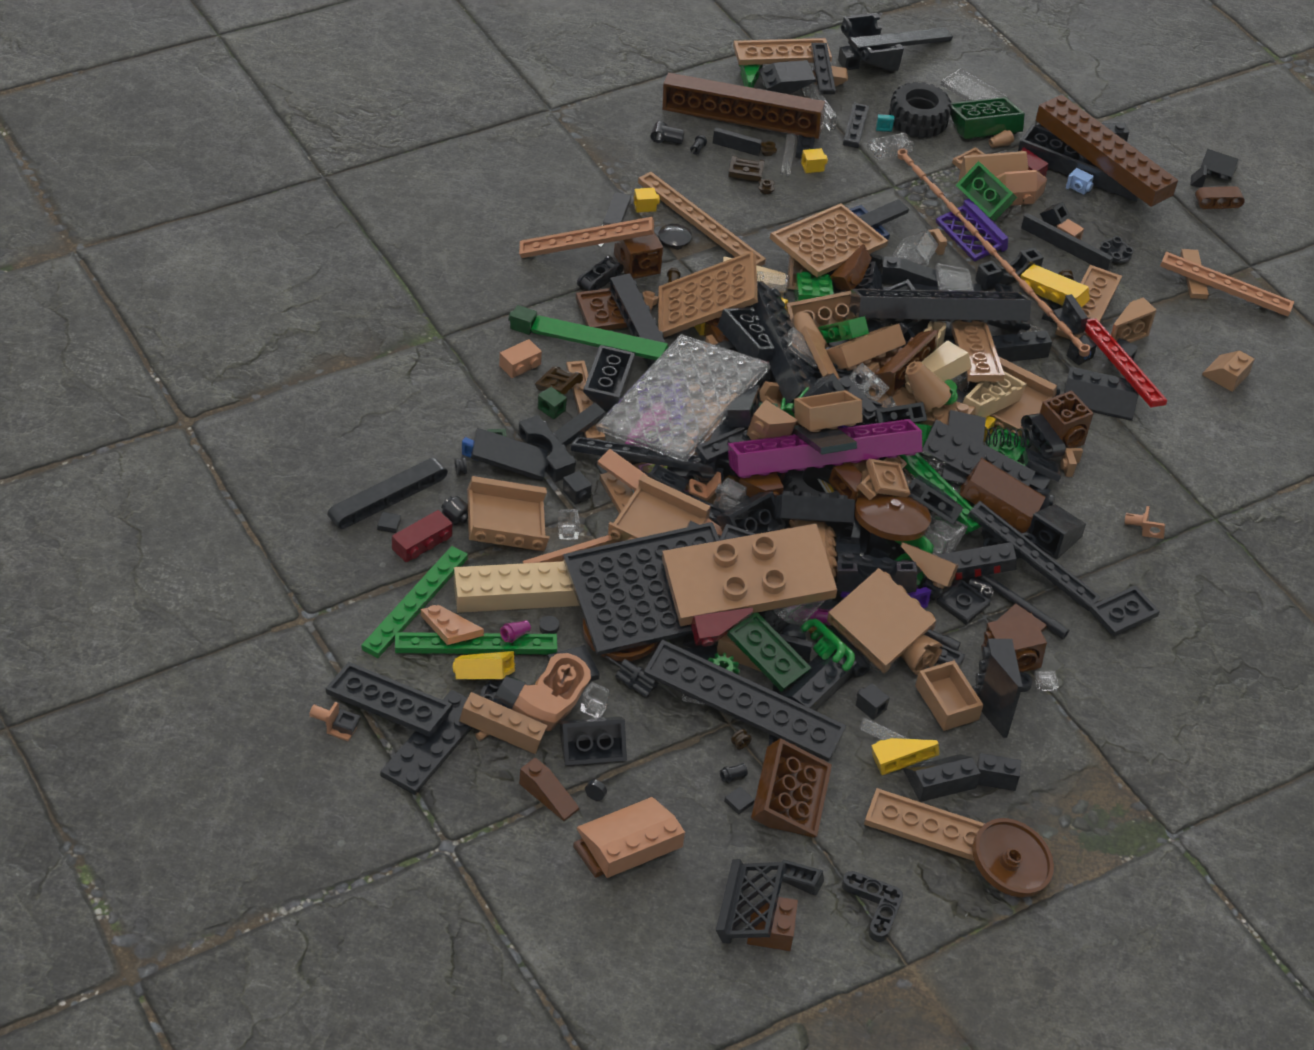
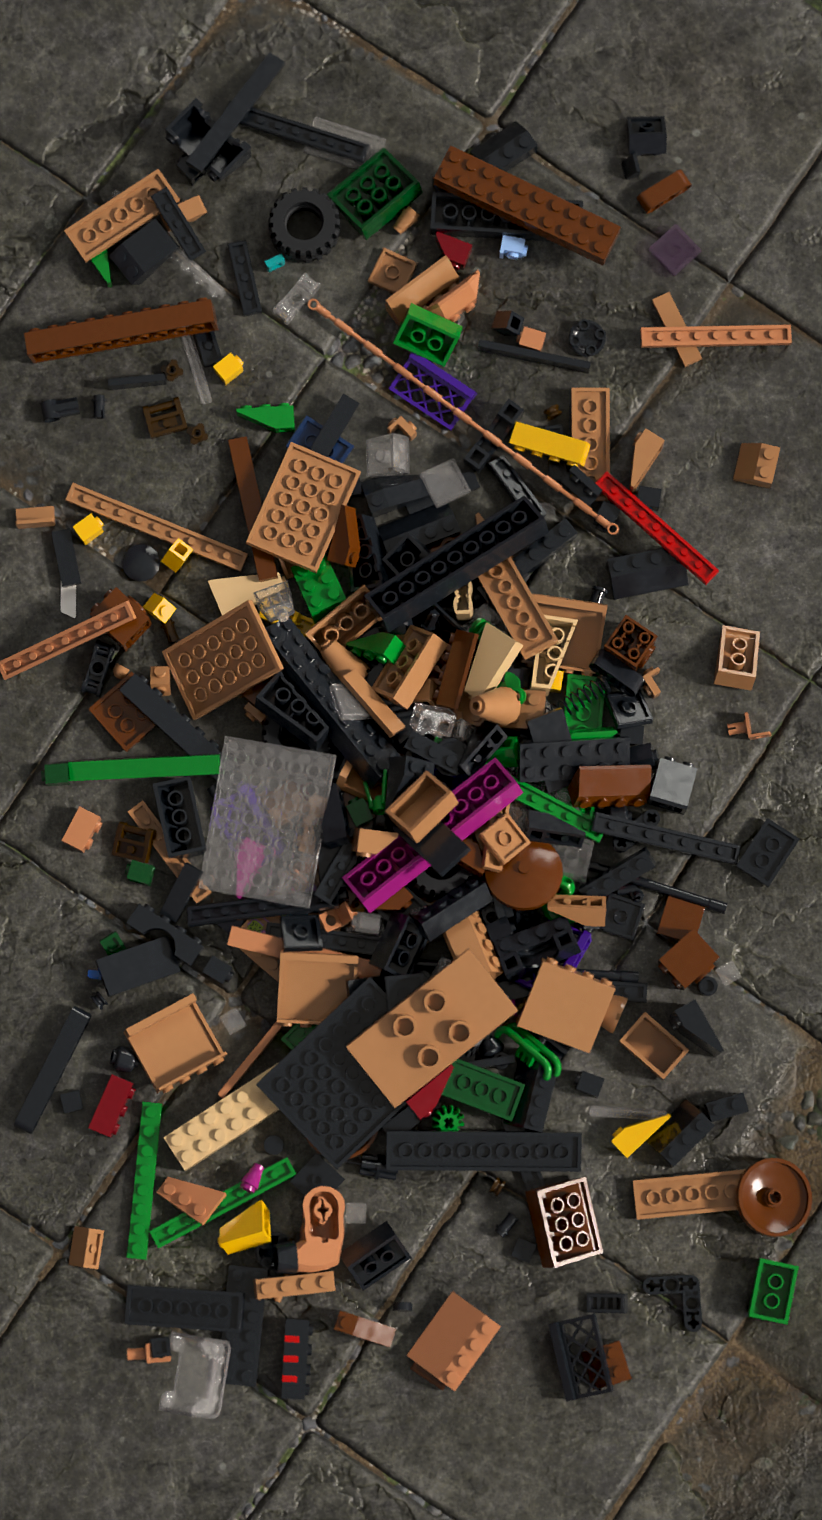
camera: 20 degrees left, 35 degrees up
(331, 622) = (86, 1247): none -> medium nougat panel
(381, 744) = (198, 1376): none -> clear windscreen
(467, 784) = (295, 1359): none -> black brick
(607, 181) = (35, 517): none -> medium nougat panel
(674, 258) = (159, 608): none -> yellow brick
(707, 236) = (177, 555): none -> yellow brick
(791, 215) = (251, 502): none -> reddish brown tile
(828, 194) = (274, 418): none -> green slope
(948, 71) = (305, 135): none -> black tile
(975, 933) = (772, 1291): none -> green brick
(1154, 476) = (737, 658): none -> medium nougat slope
(1213, 230) = (675, 250): none -> clear purple plate

